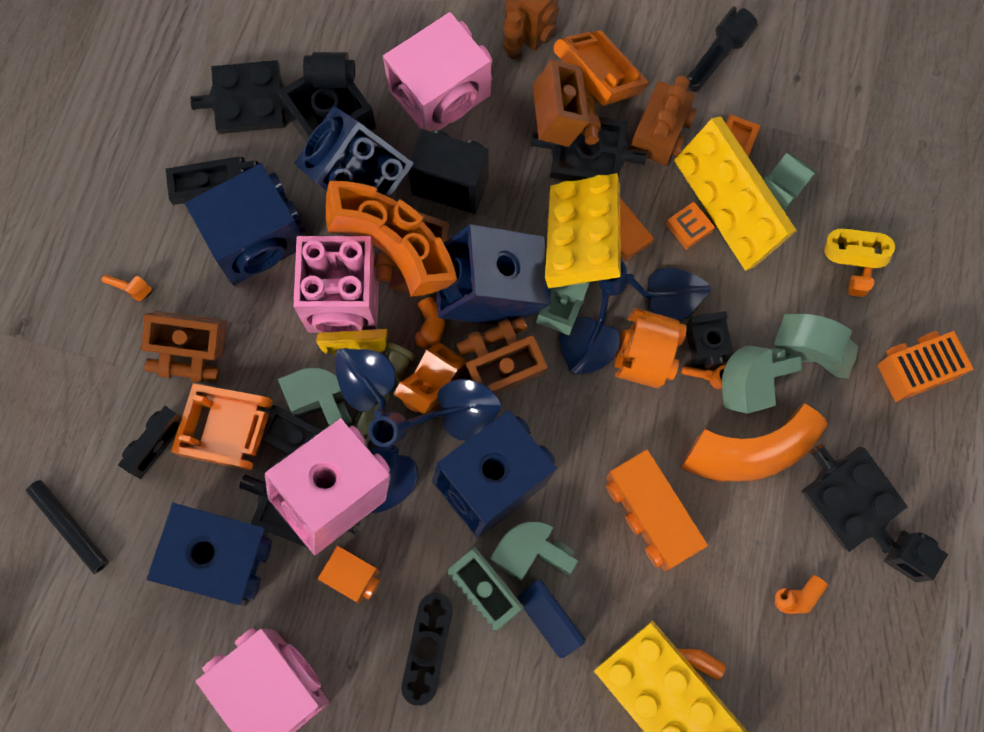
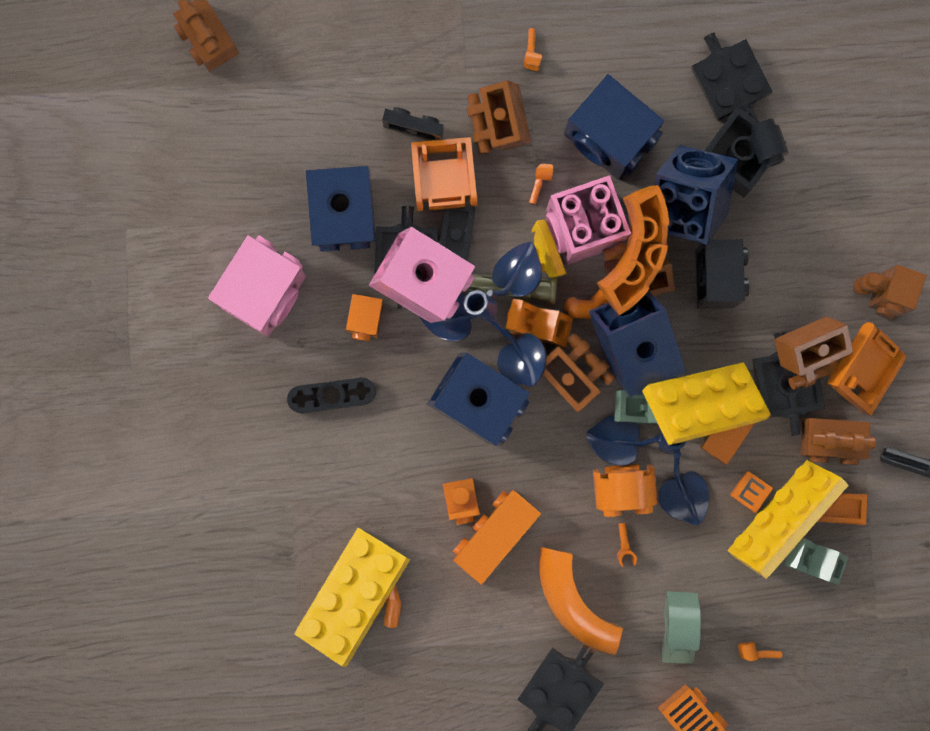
camera: 65 degrees right, 10 degrees up
(67, 526) = (327, 88): black piece -> none
(194, 179) = (645, 78): black hinge -> none
(265, 320) = (542, 172): none -> orange hand
(312, 391) = (498, 234): sand green brick -> none
(439, 73) = (806, 234): bright pink brick -> none
(485, 589) = (388, 423): sand green brick -> none
(526, 543) = (432, 441): sand green brick -> none
(551, 619) = (385, 481): dark blue slope -> none
(602, 537) = (461, 501): none -> orange bracket
(701, 350) = (664, 531): black brick -> none
(750, 377) = (630, 579): sand green brick -> none
(801, 600) = (466, 673): orange arm -> none
(859, 248) = (780, 640): yellow beam -> none

